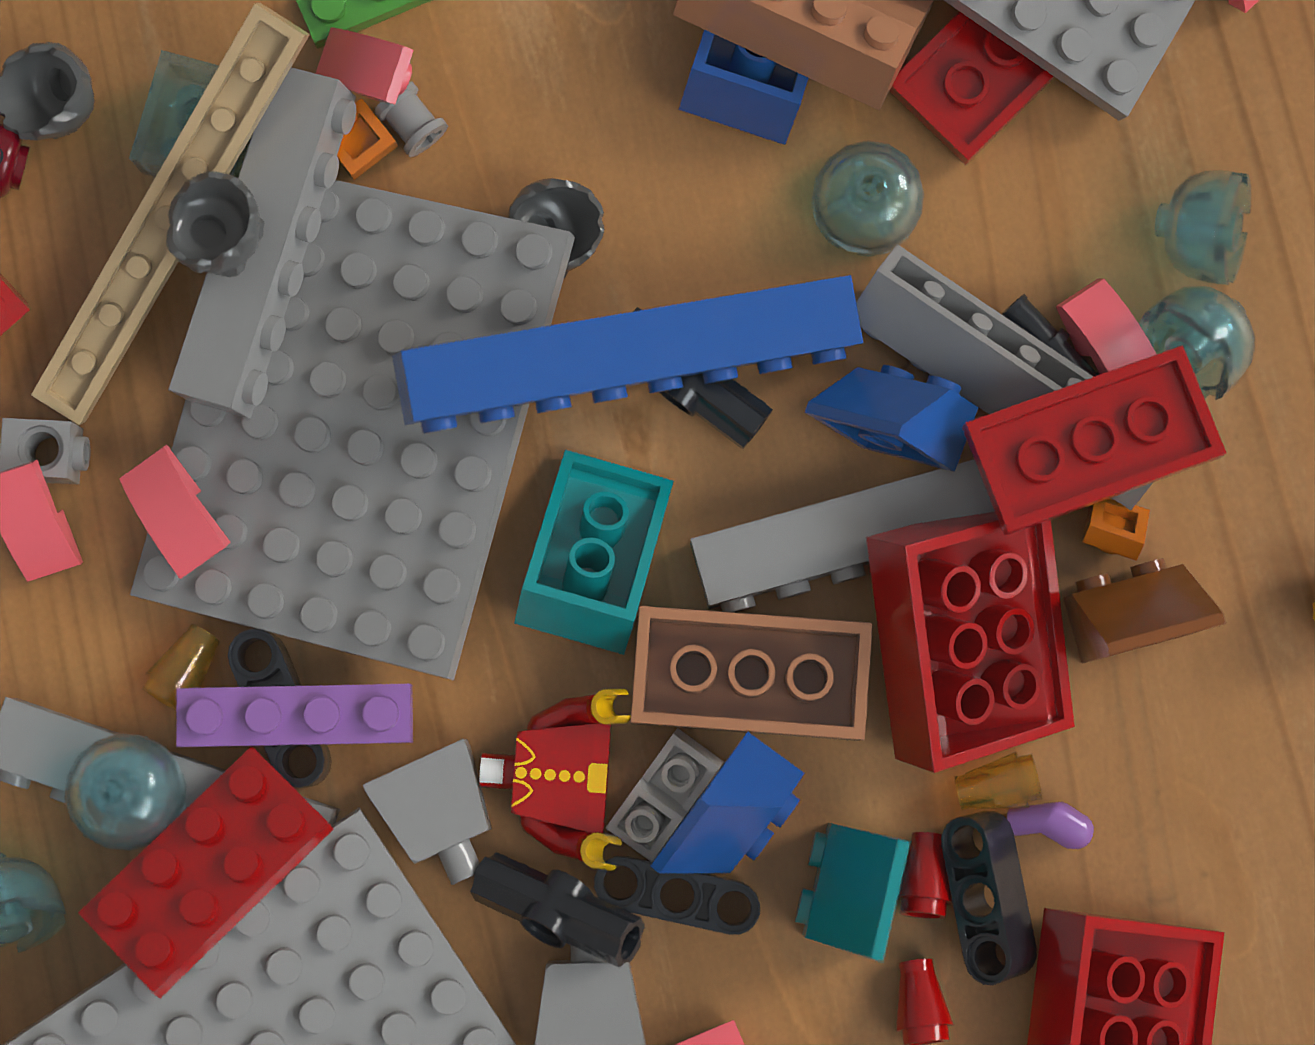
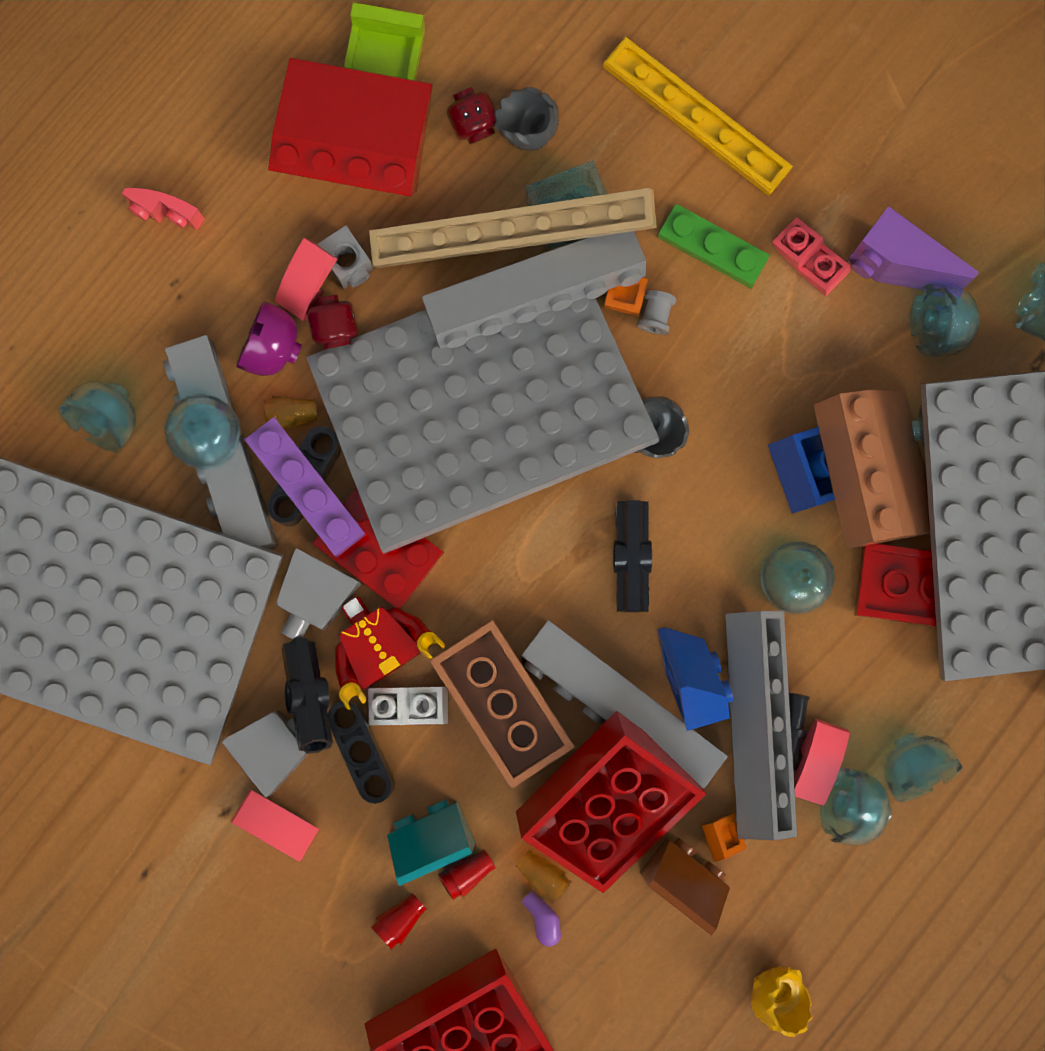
camera: 50 degrees right, 0 degrees up
(75, 625) = (270, 342): none -> magenta cylinder
(108, 529) = (332, 322): none -> dark red head
(172, 513) = (361, 345): coral slope -> none
(205, 872) = (191, 502): red plate -> none
(214, 224) = (521, 255): dark grey hair -> none
(366, 64) = (665, 268): coral slope -> none
(484, 696) = (390, 574): none -> red plate
(593, 552) = (505, 575): teal slope -> none
(626, 350) = (619, 514): blue brick -> none
(733, 812) = (423, 749): blue slope -> none
(976, 921) = (462, 919): black beam -> none
(1093, 440) = (757, 792): red plate -> none

